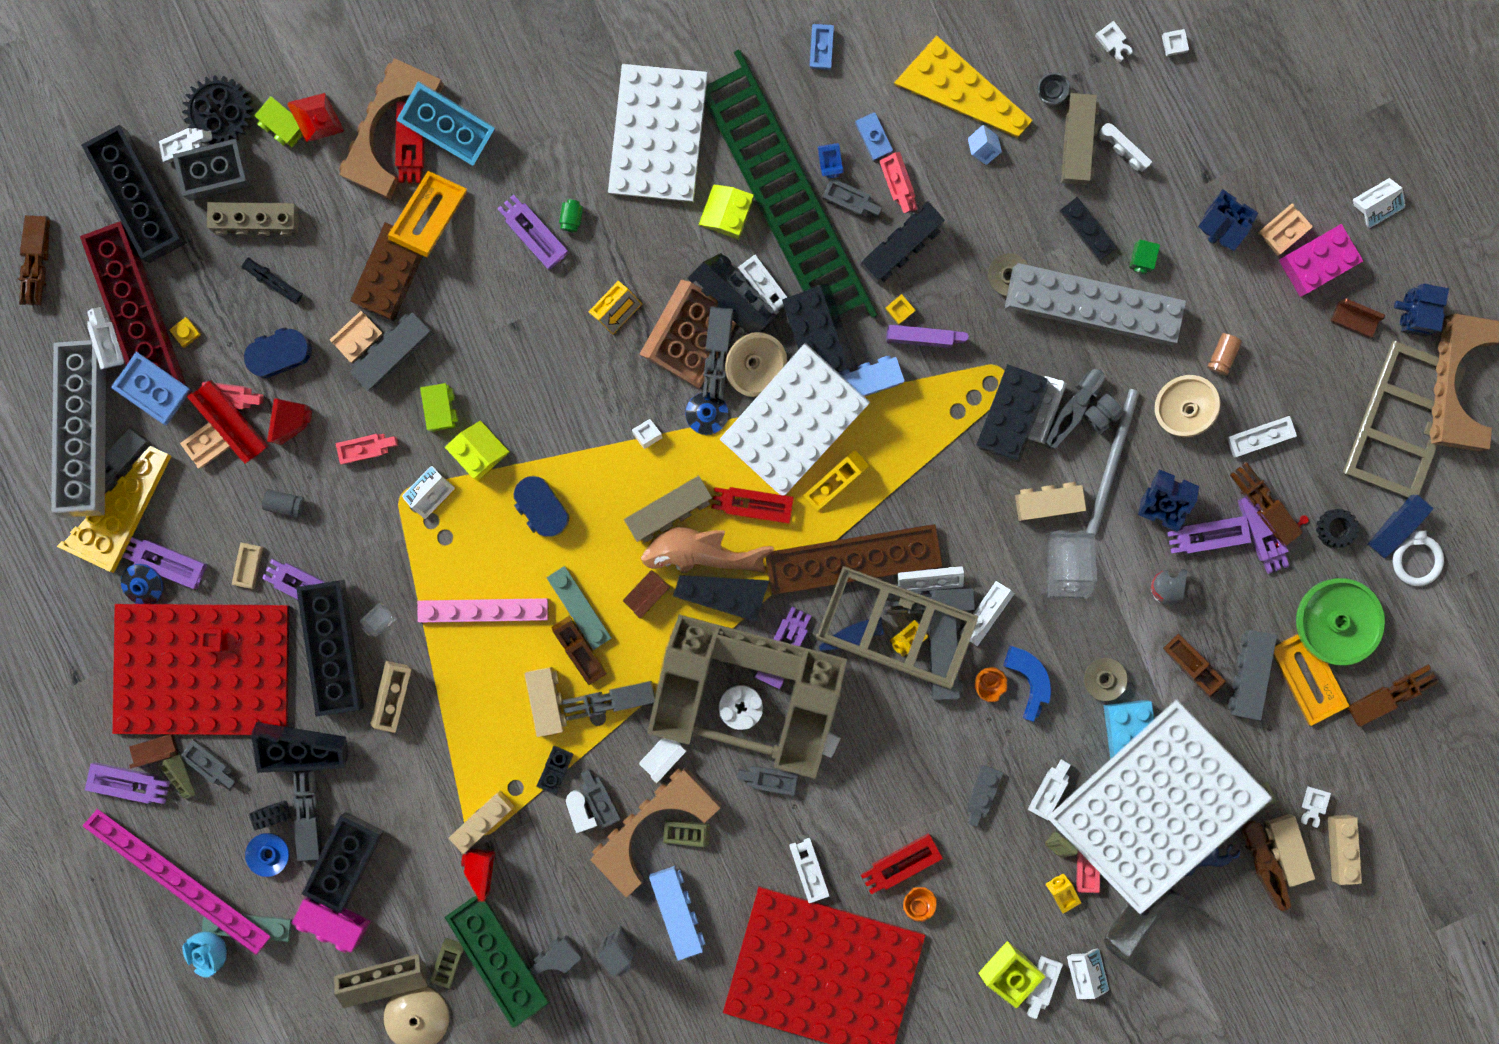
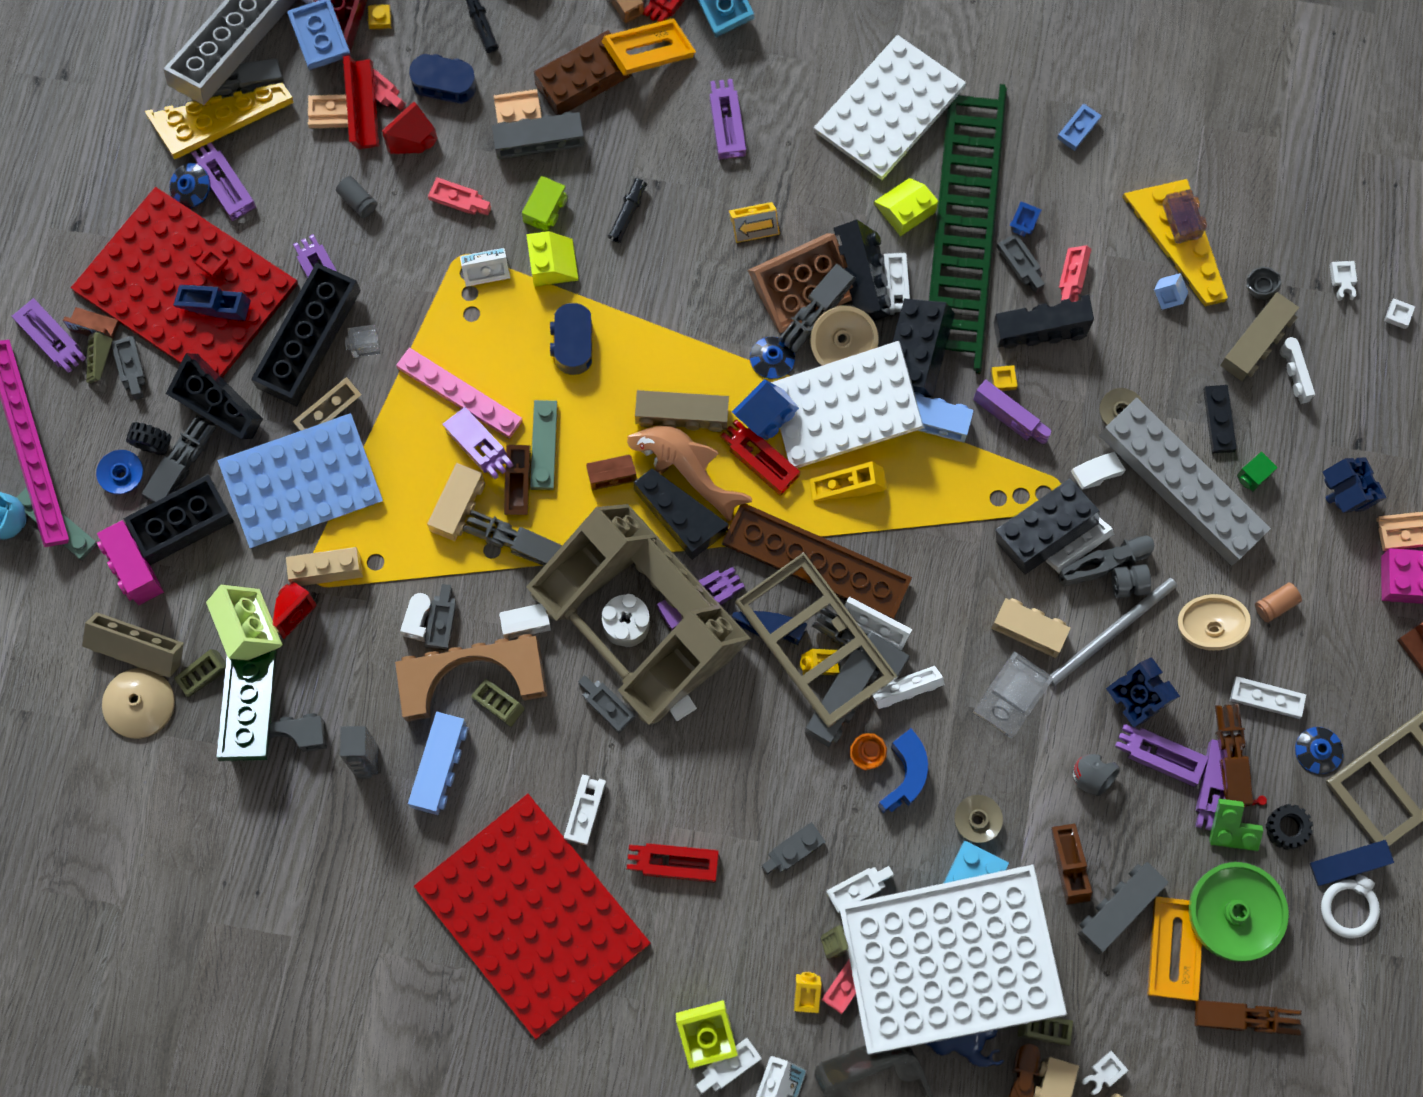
camera: 35 degrees right, 15 degrees down
(236, 672) = (212, 302): none -> dark blue slope
(247, 565) = (288, 228): tan tile -> none
(413, 767) = (300, 480): none -> light blue plate
(452, 908) = (243, 622): none -> yellowish green slope
(508, 368) = (631, 202): none -> black pin
(520, 641) = (470, 433): none -> hinge
(555, 770) = (421, 568): black slope -> none
(570, 215) = (768, 125): green brick -> none
(647, 433) = (708, 338): white plate -> none
(736, 467) = (766, 409): none -> blue slope
(874, 136) = (1076, 225): medium blue plate -> none
(920, 904) = (665, 908): orange hair -> none
(957, 74) = (1184, 216): none -> brick
(1021, 338) = (1097, 470): none -> white slope
(1297, 561) = (1229, 830): none -> bright green plate
(1313, 453) = (1309, 755): none -> dish

